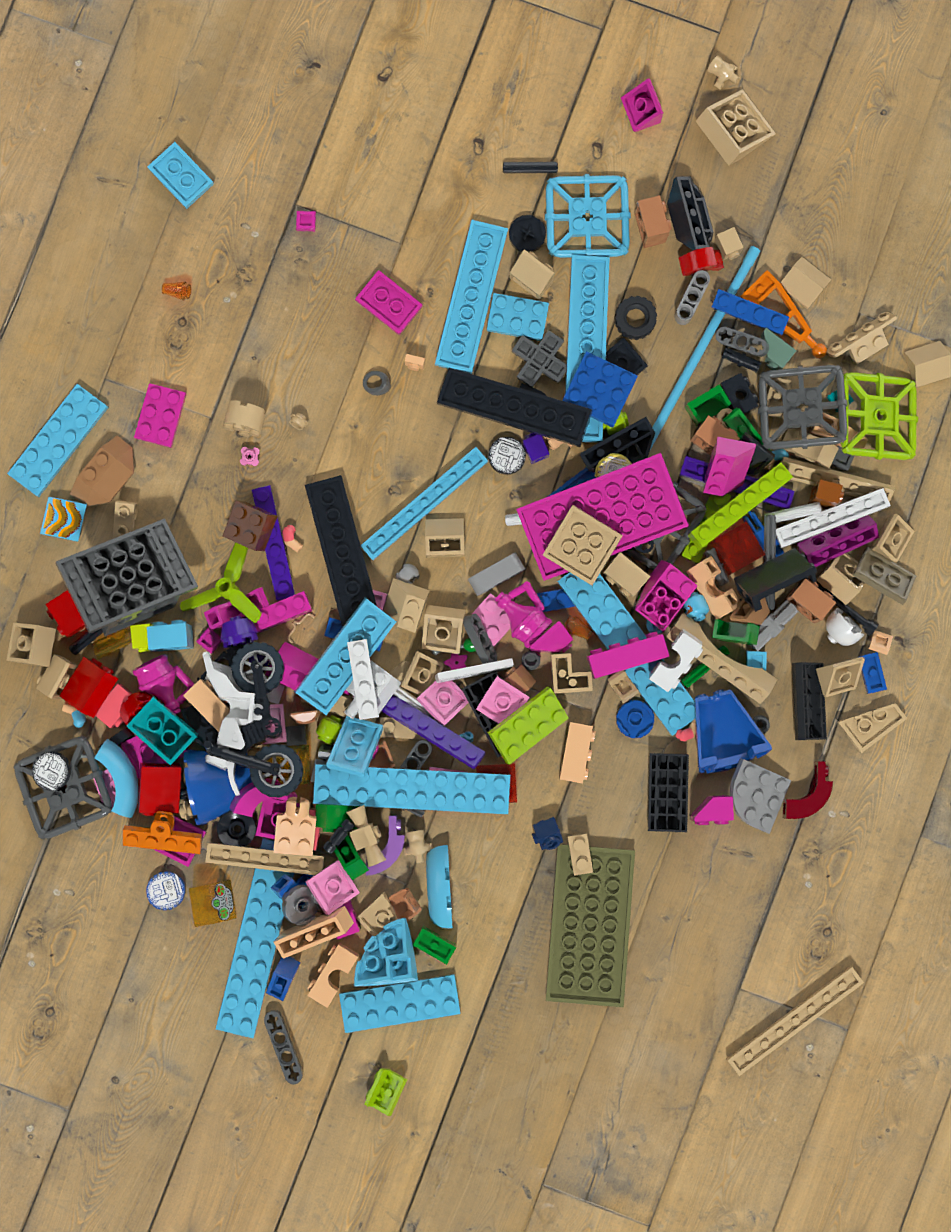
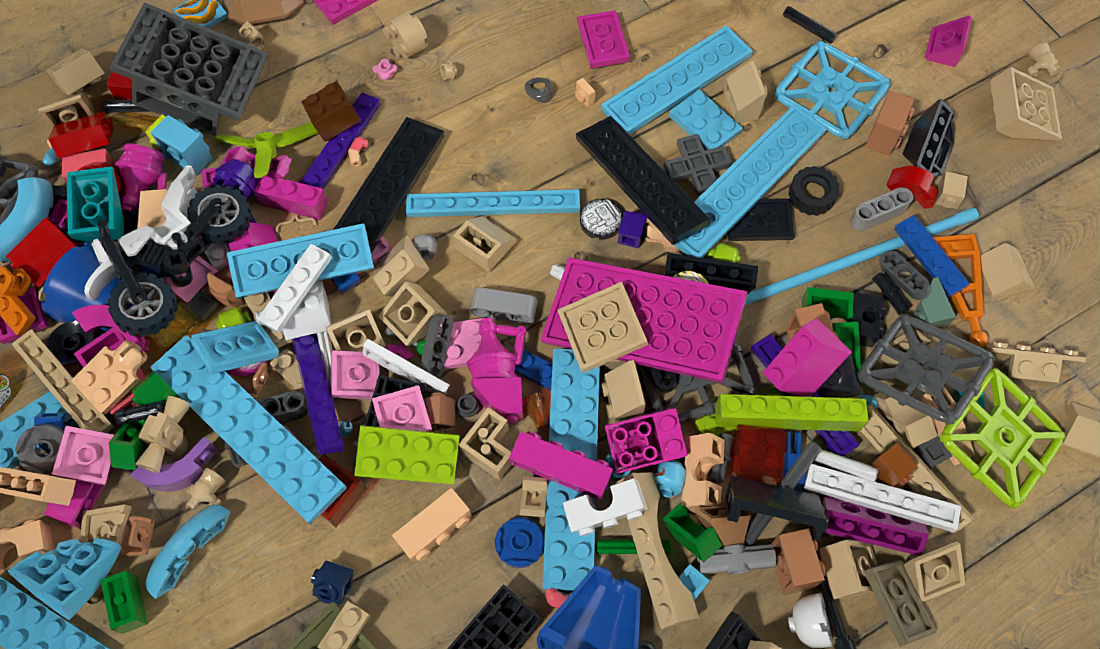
camera: 40 degrees right, 20 degrees down
(527, 233) = (771, 66): black tile -> none
(600, 388) = (734, 216): blue plate -> none

